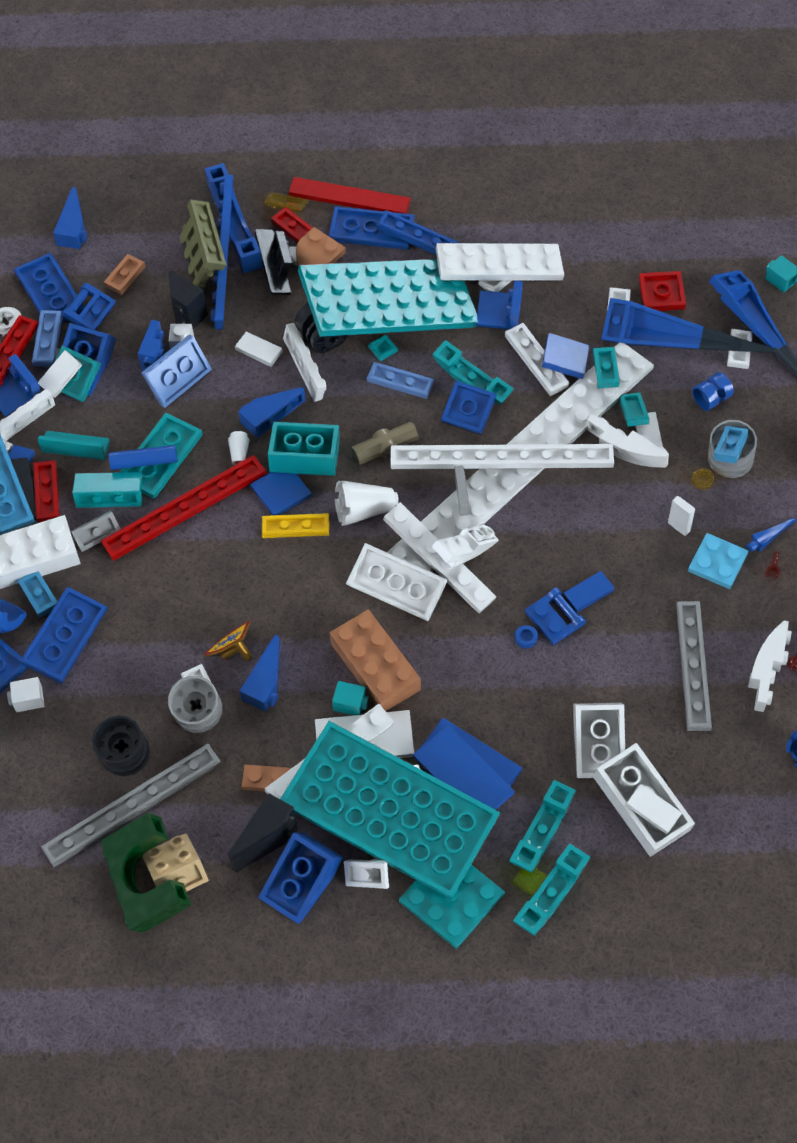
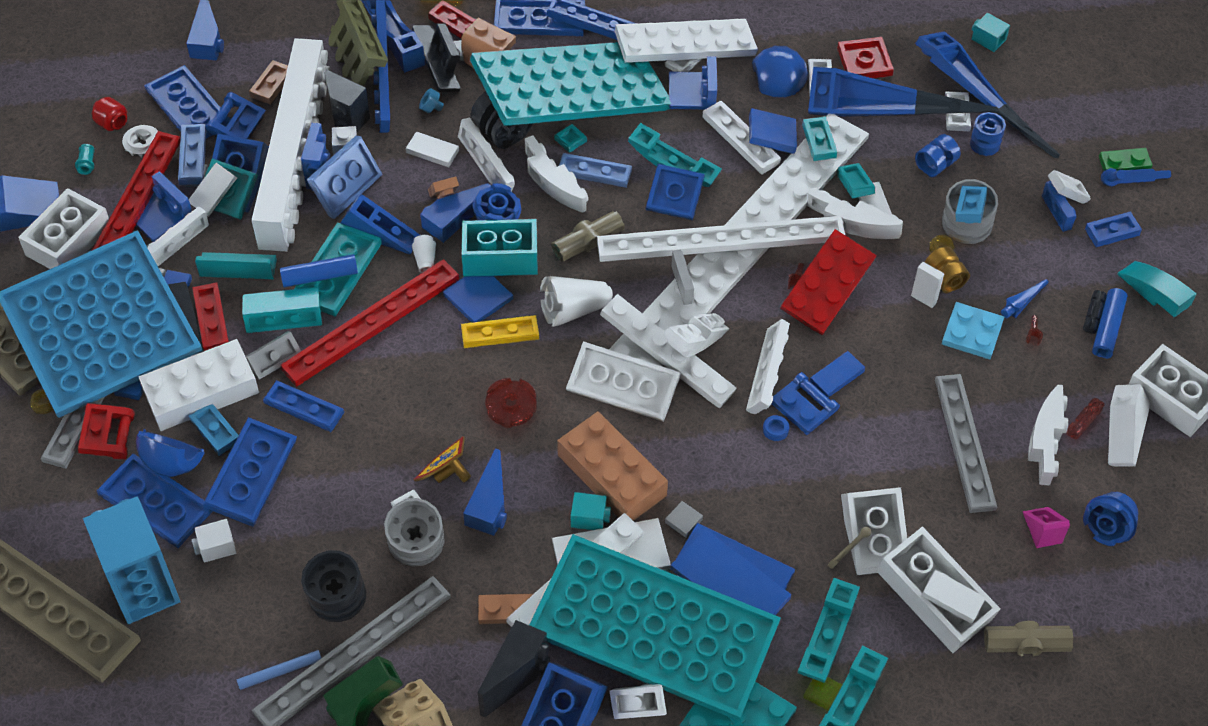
camera: 10 degrees left, 5 degrees down
(67, 813) = (278, 670): none -> medium blue bar
(117, 579) = (303, 406): none -> blue tile
(122, 366) = (283, 171): none -> white brick
(198, 414) = (376, 221): none -> blue slope
(262, 303) = (430, 101): none -> dark azure tile
(262, 389) = (443, 188): none -> nougat plate
(299, 581) = (511, 415): none -> clear red plate
(306, 407) = (496, 203): none -> blue cone
(360, 386) = (552, 179): none -> white slope
(432, 712) = (683, 519): none -> light grey tile
(525, 584) = (767, 368): none -> white plate
(565, 499) = (794, 277): none -> clear red hand
(581, 298) = (780, 71): none -> blue cylinder
(586, 742) = (865, 532): none -> dark tan hinge
(592, 505) = (828, 282): none -> red plate
(703, 499) = (954, 272): none -> pearl gold wheel
(718, 851) = (1028, 638): none -> dark tan piece
(752, 750) = (1046, 526): none -> dark pink slope
(762, 374) = (987, 133): none -> blue wheel

